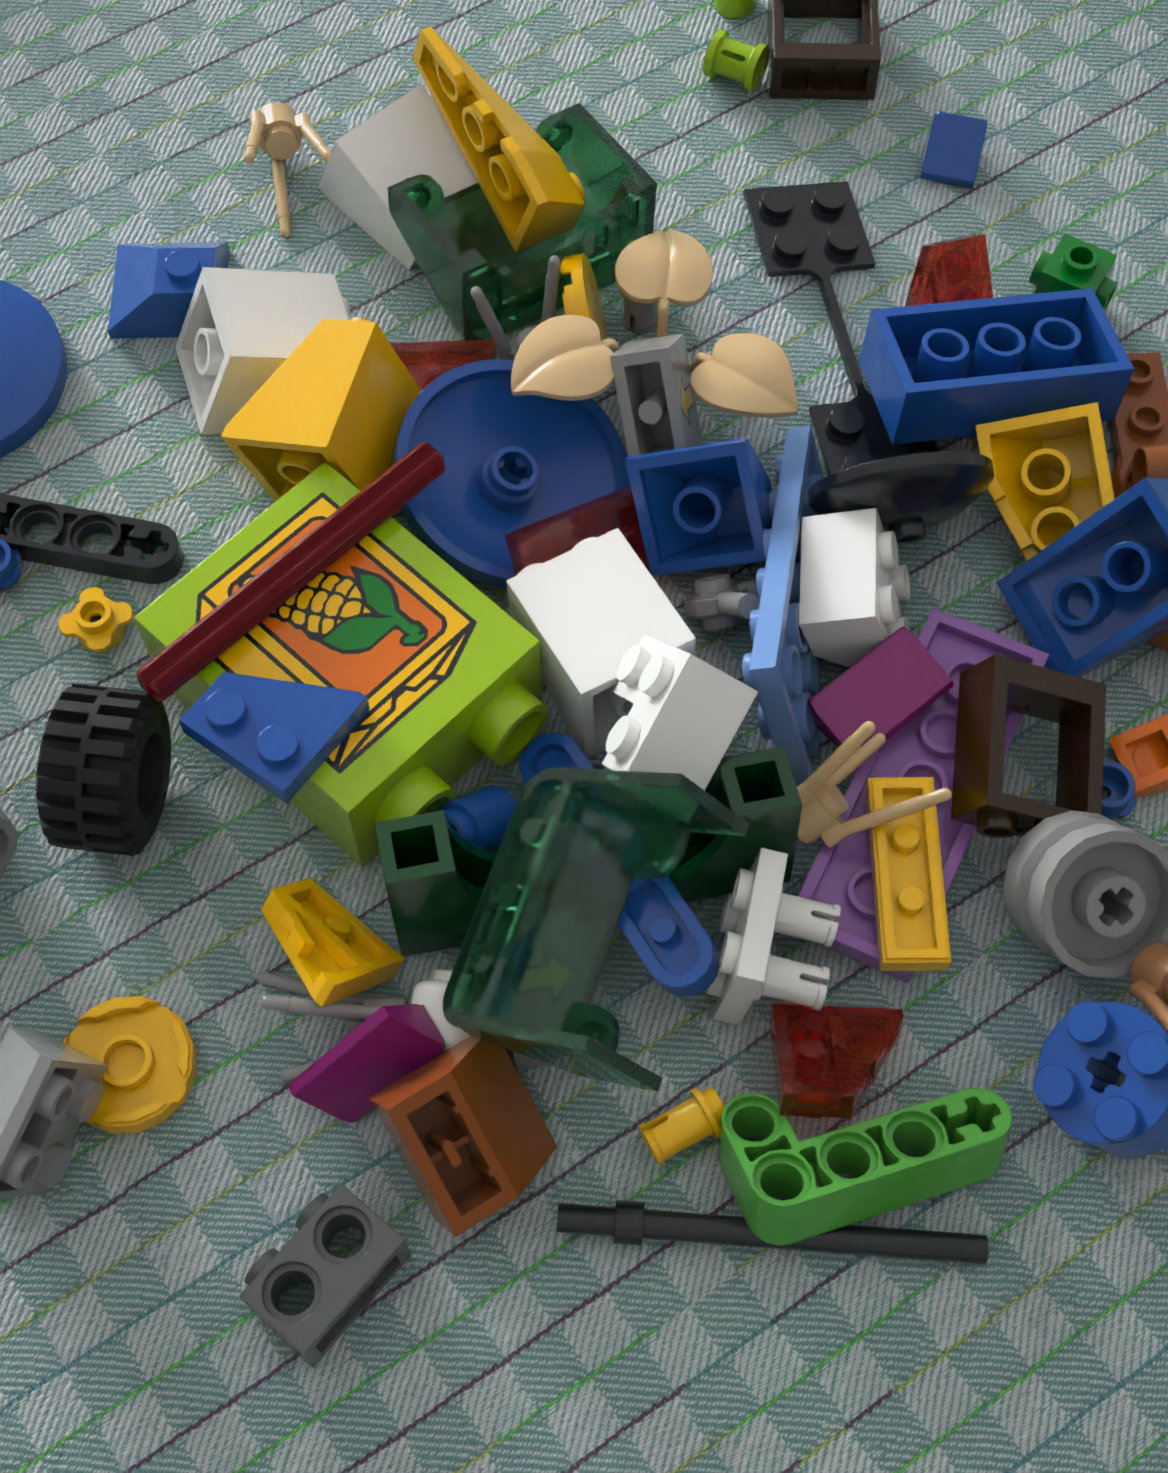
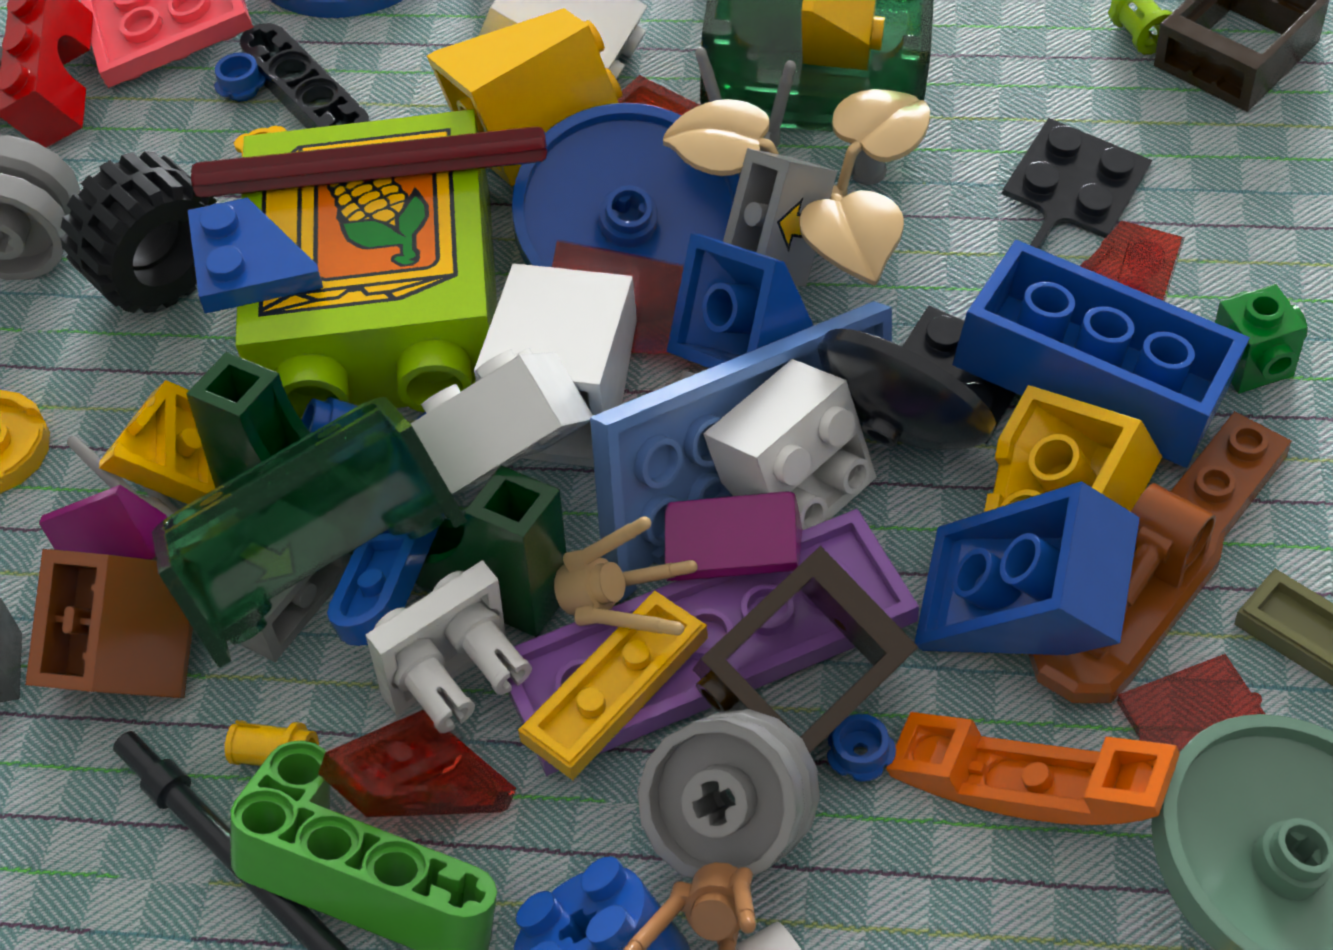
camera: 45 degrees right, 10 degrees down
(583, 294) = (803, 119): yellow tile -> none
(954, 149) = (1271, 181): blue slope -> none

